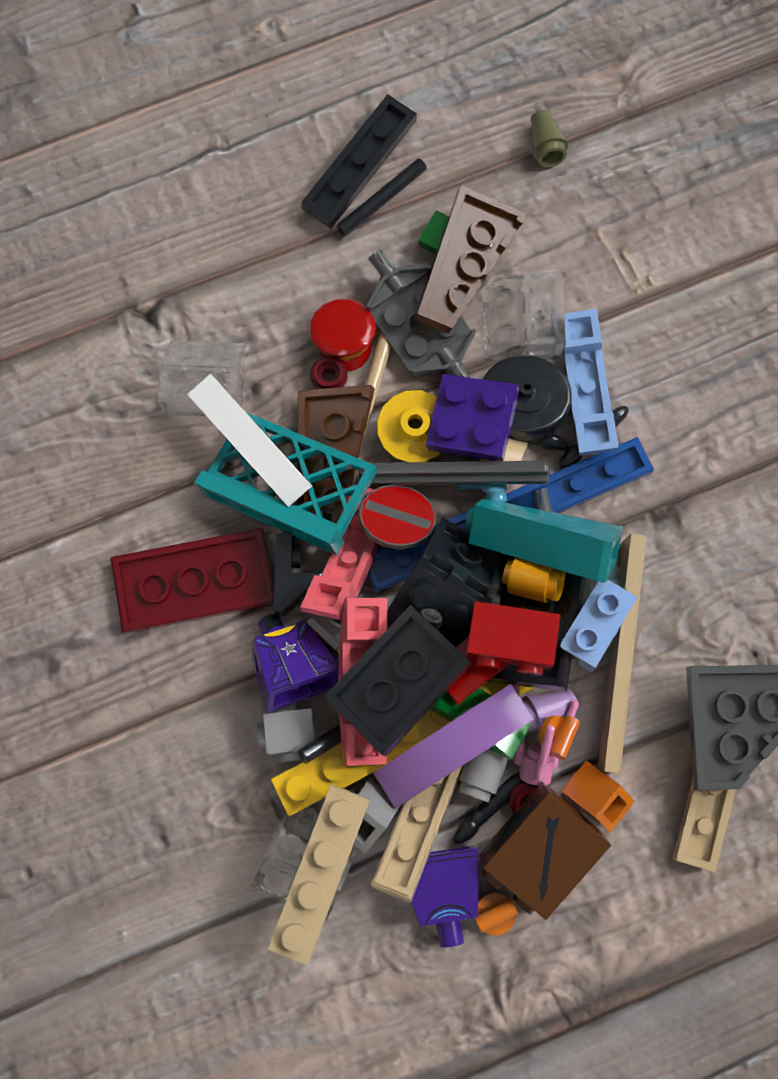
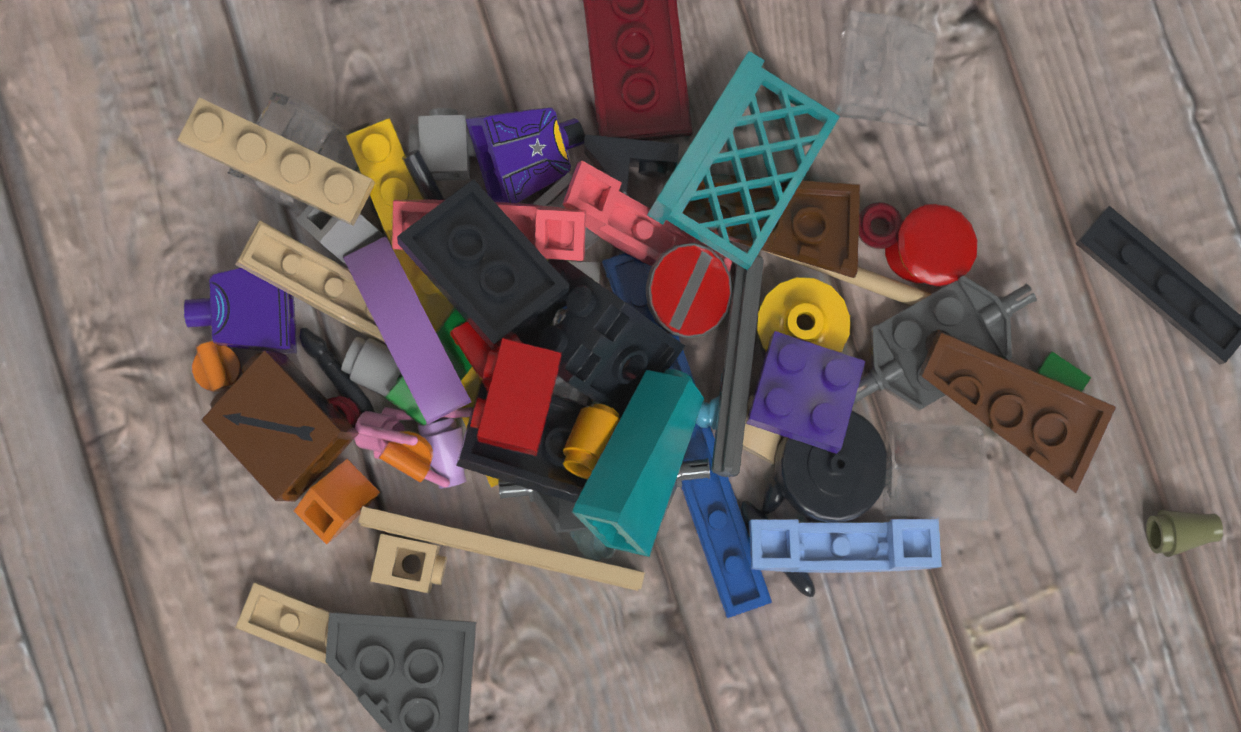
camera: 90 degrees right, 5 degrees up
(249, 440) = (794, 117): white sticker -> none
(381, 197) = (1115, 311): black bar -> none
(597, 623) = (531, 510): light blue bracket -> none
(654, 742) = (390, 559): none -> tan brick

